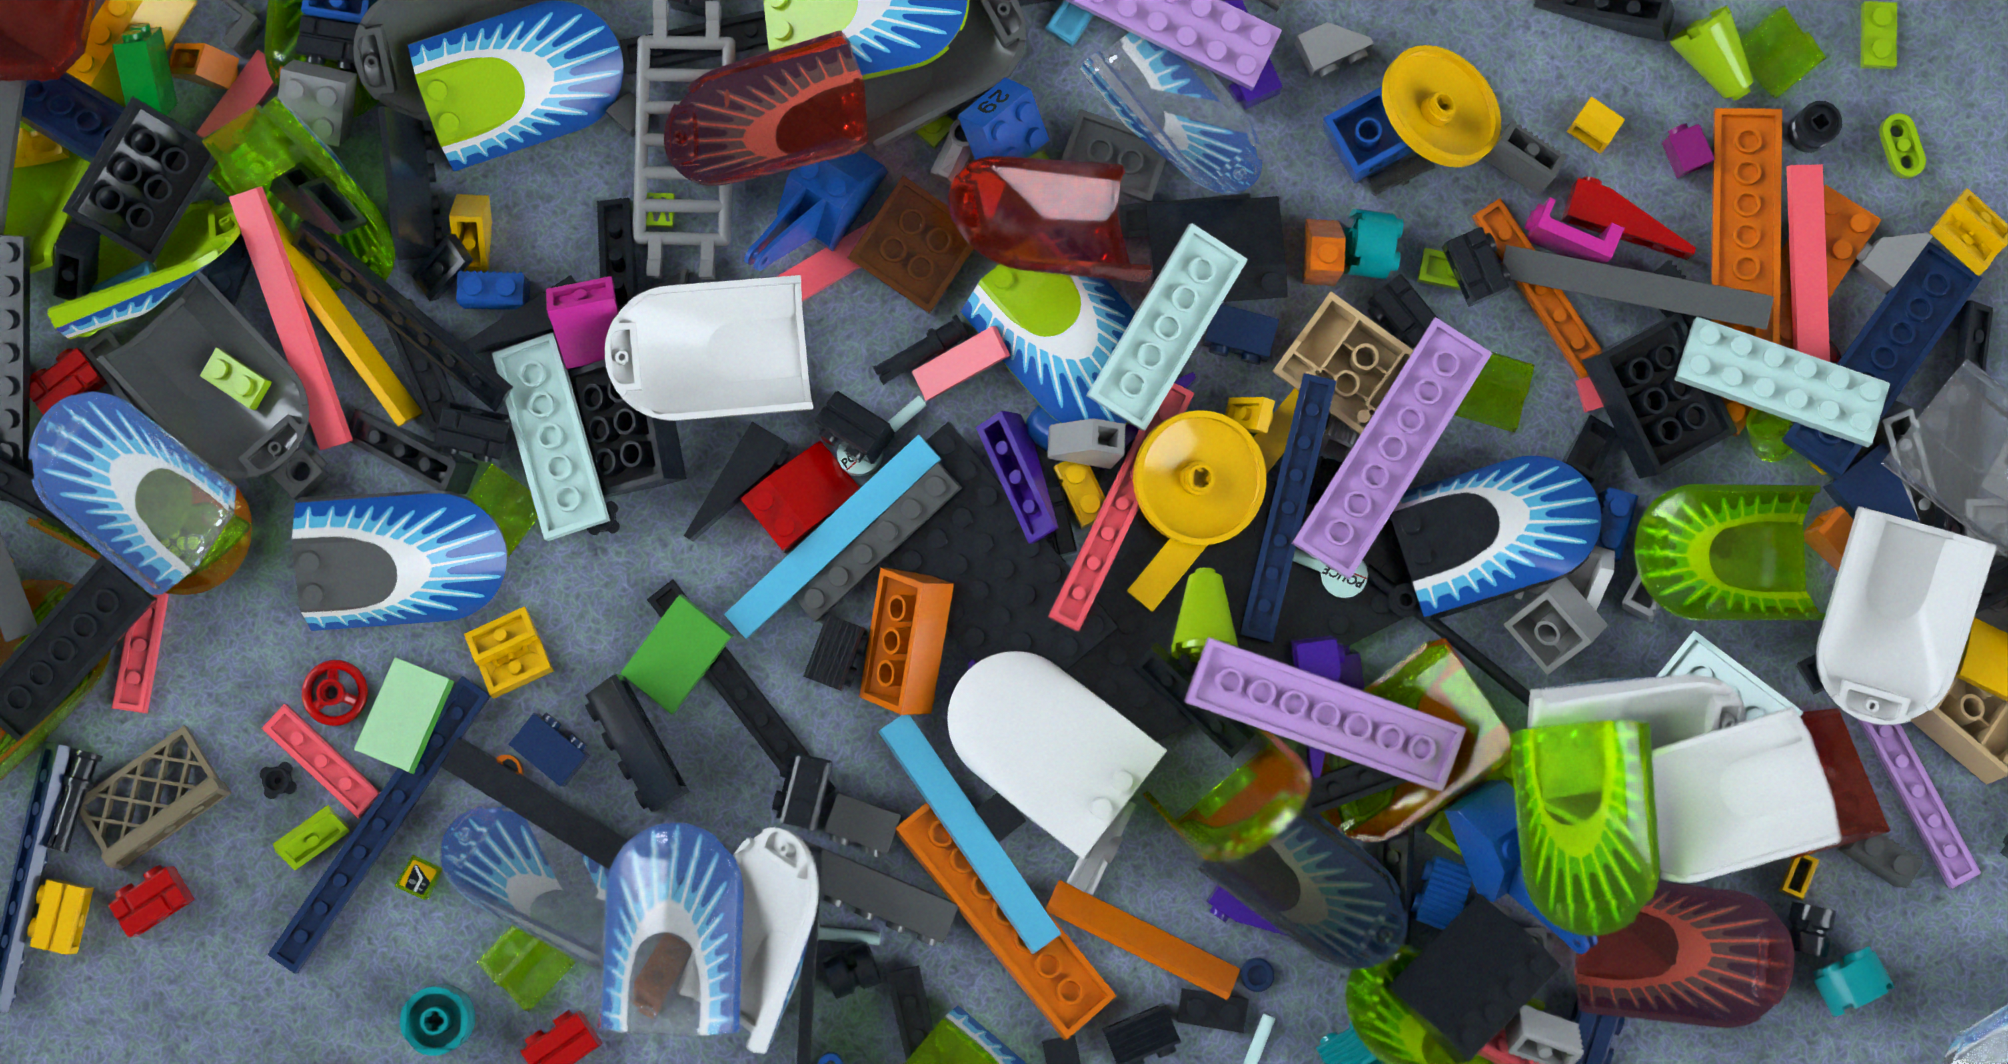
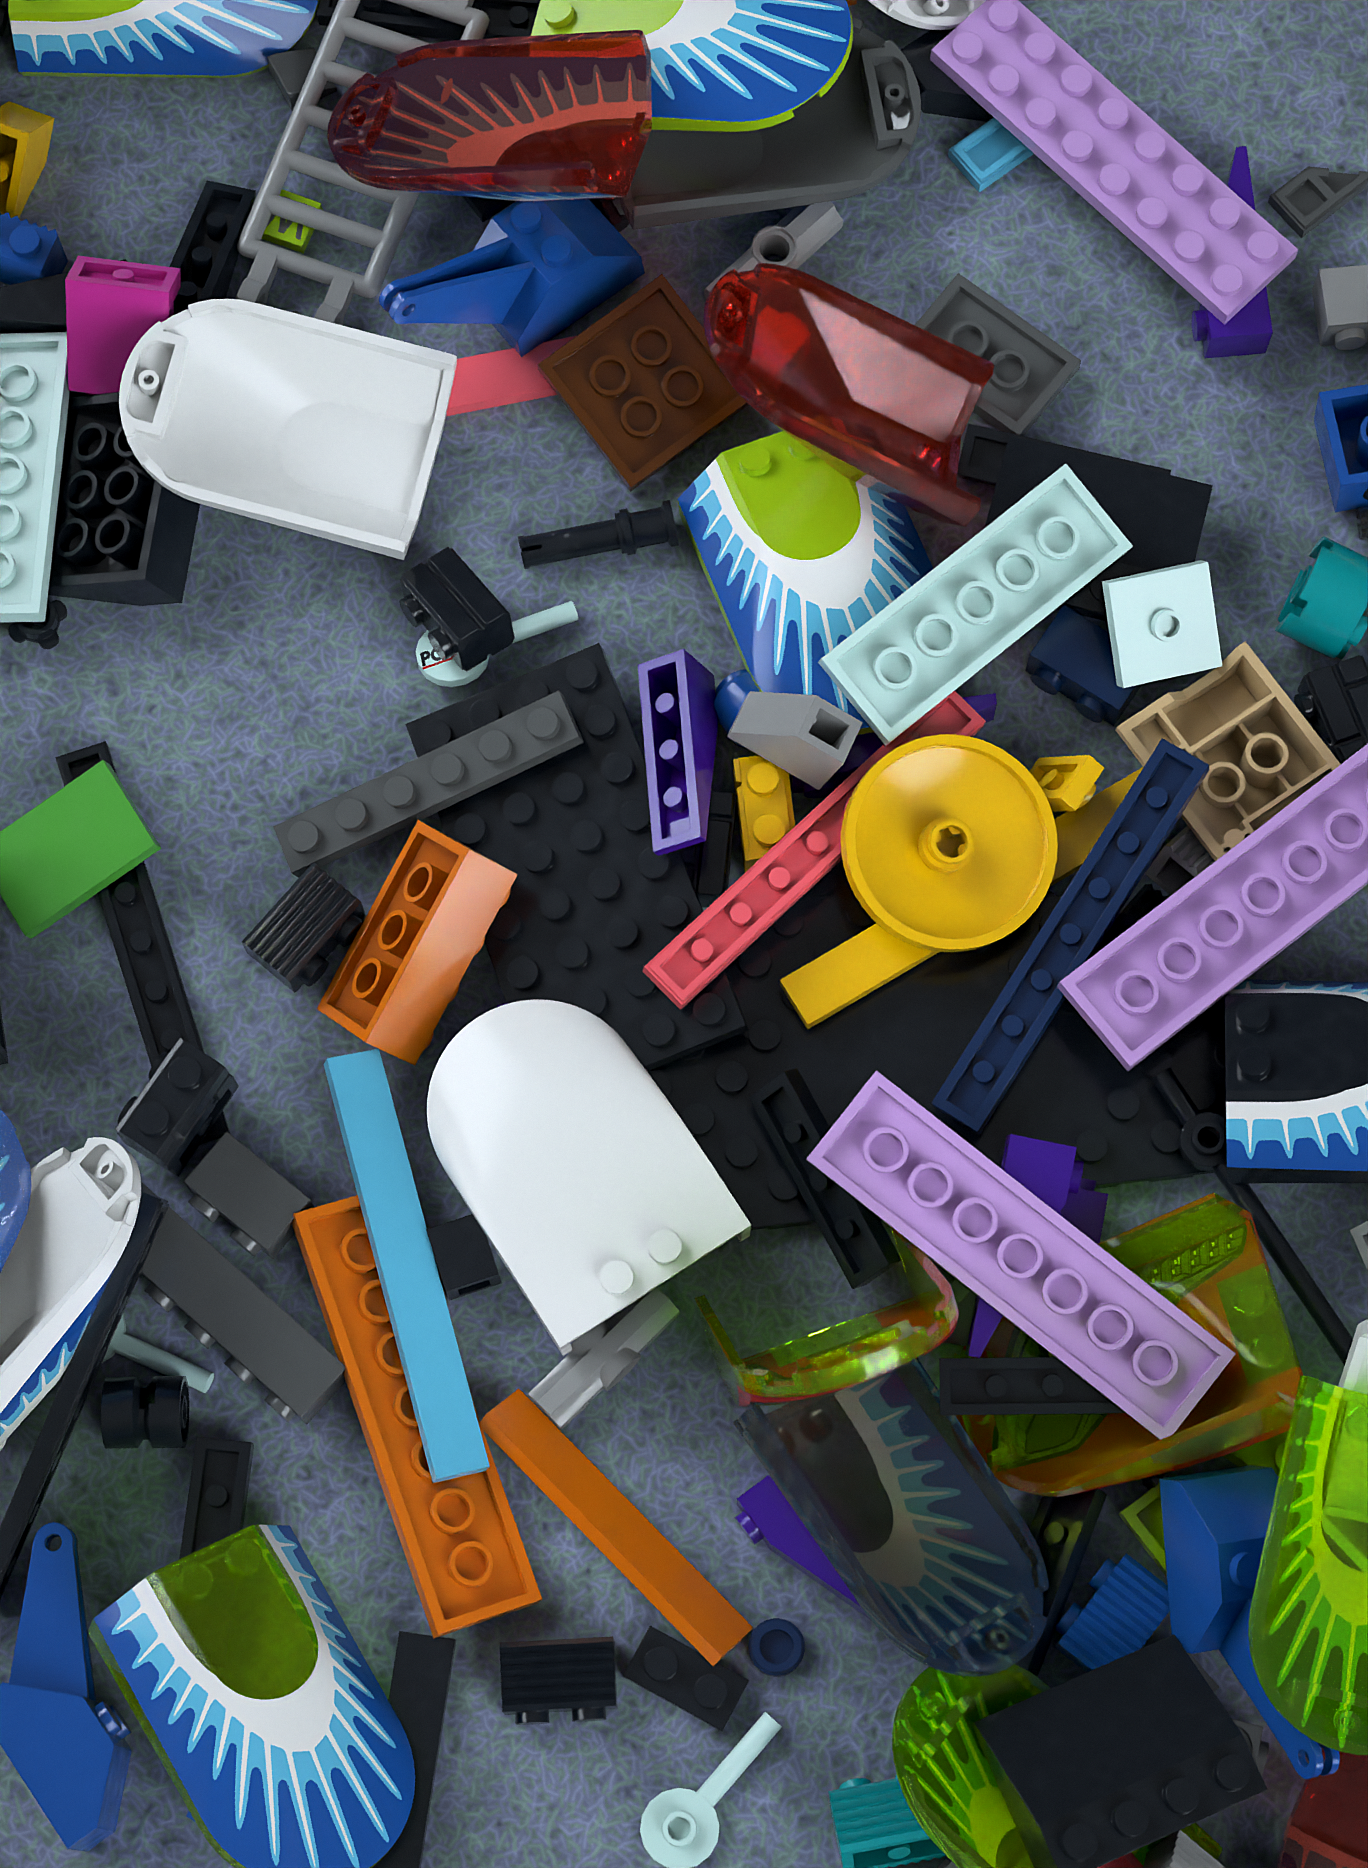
camera: 20 degrees right, 10 degrees down
(750, 464) = (272, 620): black slope -> none
(800, 495) = (340, 684): red slope -> none
(832, 537) = (360, 755): medium azure tile -> none
(935, 131) = (730, 235): lime plate -> none
(961, 363) = (650, 569): coral tile -> none
(1004, 122) = (842, 241): blue brick -> none
(1178, 112) = (1100, 314): clear windscreen -> none
(1202, 615) = (887, 1039): lime cone -> none
(1279, 298) = (1162, 623): none -> light aqua plate
(1323, 252) = (1251, 593): orange slope -> none
(1333, 581) = (1104, 1071): light aqua piece -> none

